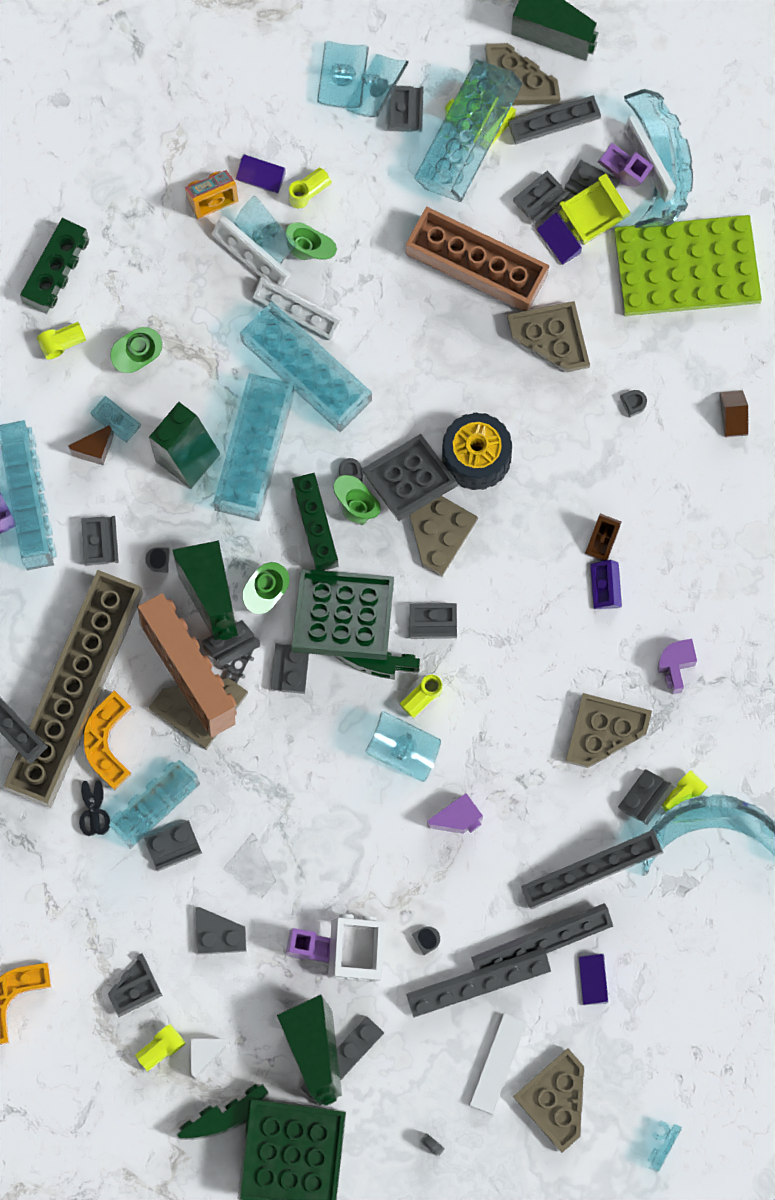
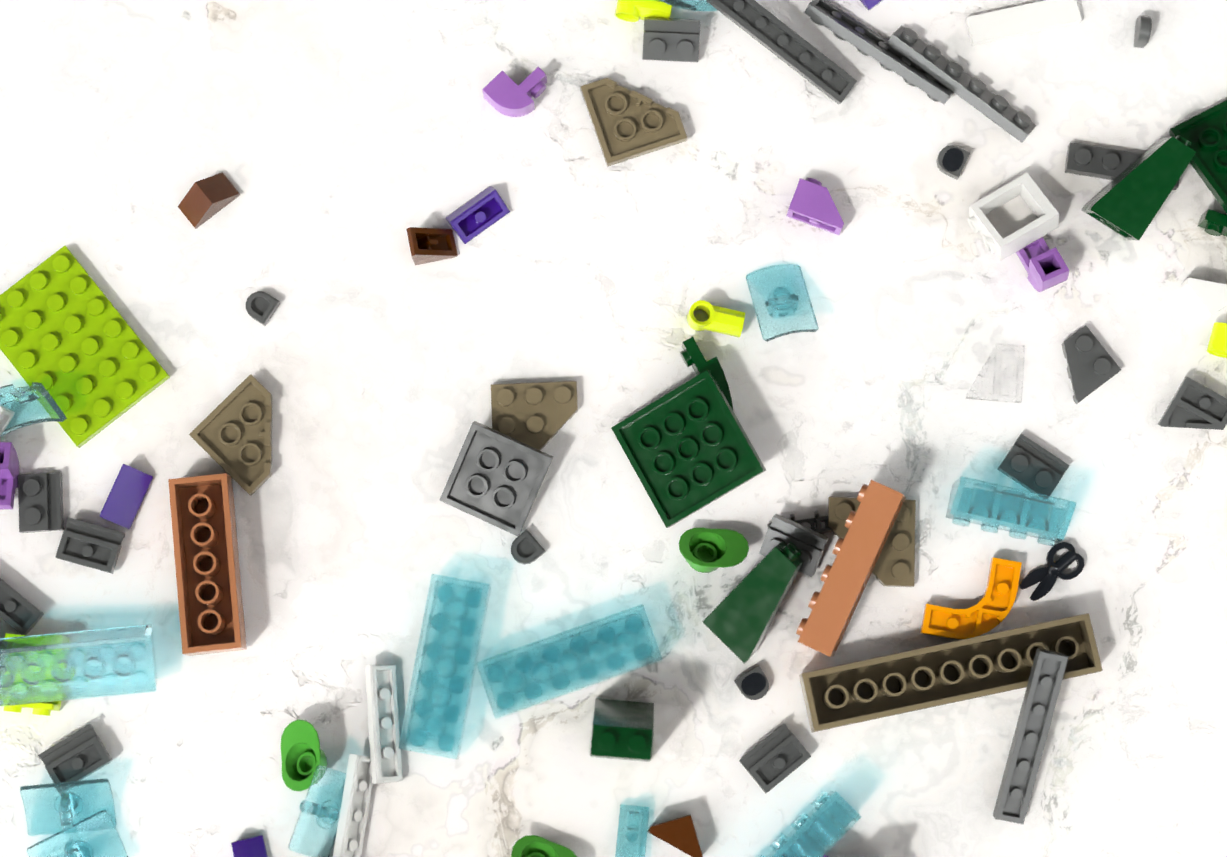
camera: 125 degrees left, 5 degrees up
(289, 670) = (783, 471): dark grey plate -> none
(309, 186) = (234, 802): neon yellow piece -> none
(315, 522) = (608, 544): dark green brick -> none
(356, 499) = (556, 517): bright green piece -> none
(433, 621) = (630, 359): dark grey plate -> none
(477, 450) = (411, 407): wheel -> none
(594, 210) = (71, 477): neon yellow panel -> none

